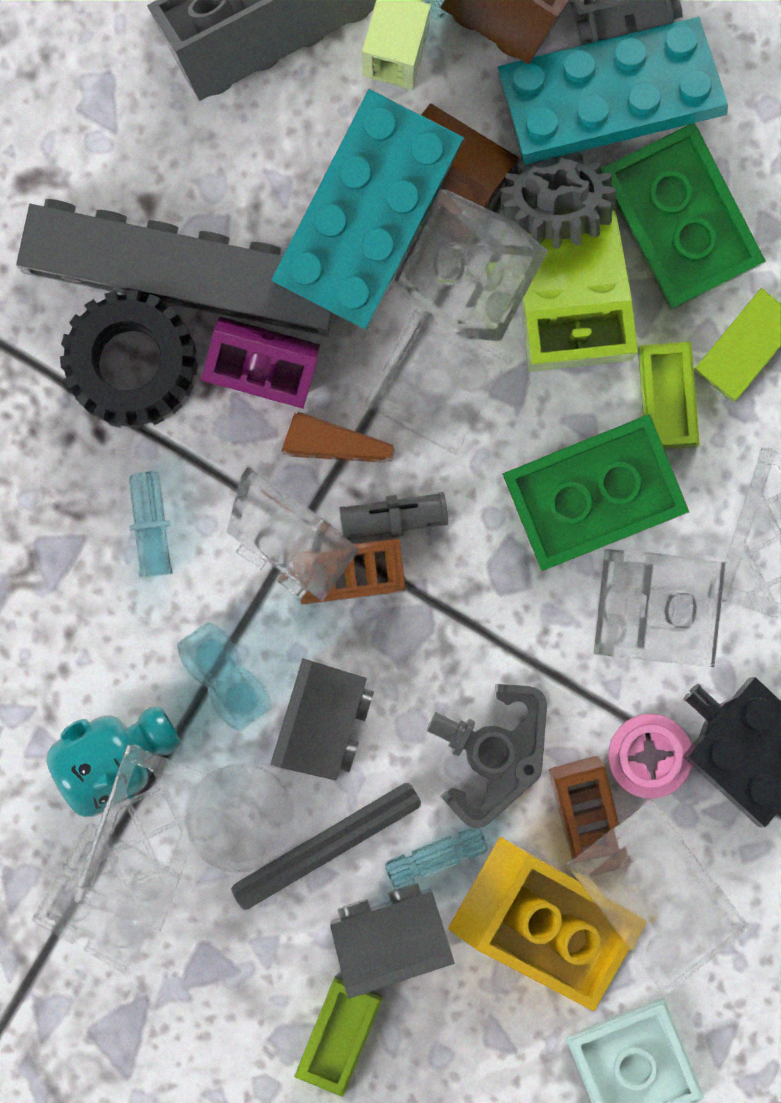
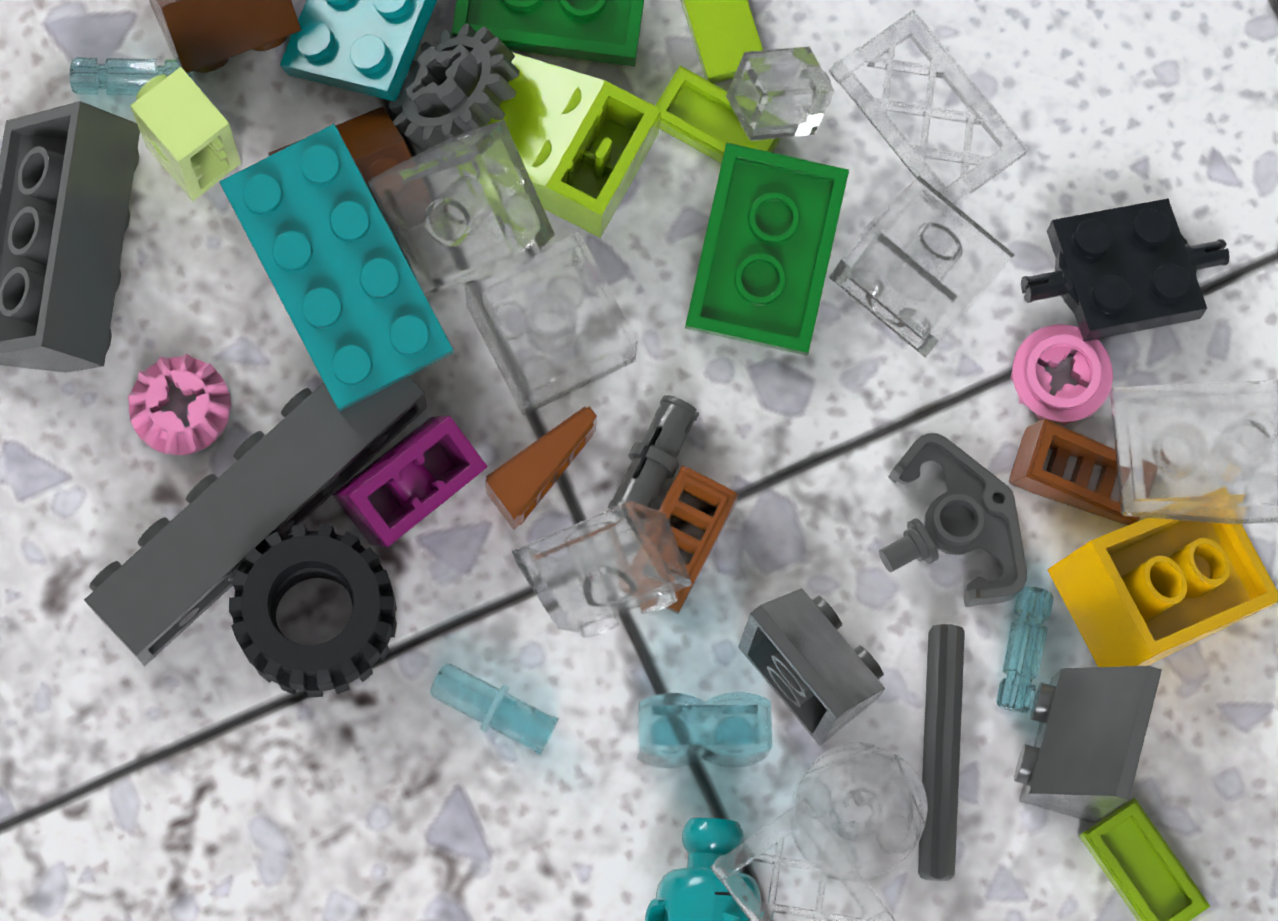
camera: 60 degrees left, 10 degrees down
(216, 193) = (207, 413): none -> bright pink gear
(714, 426) = (780, 93): none -> clear brick

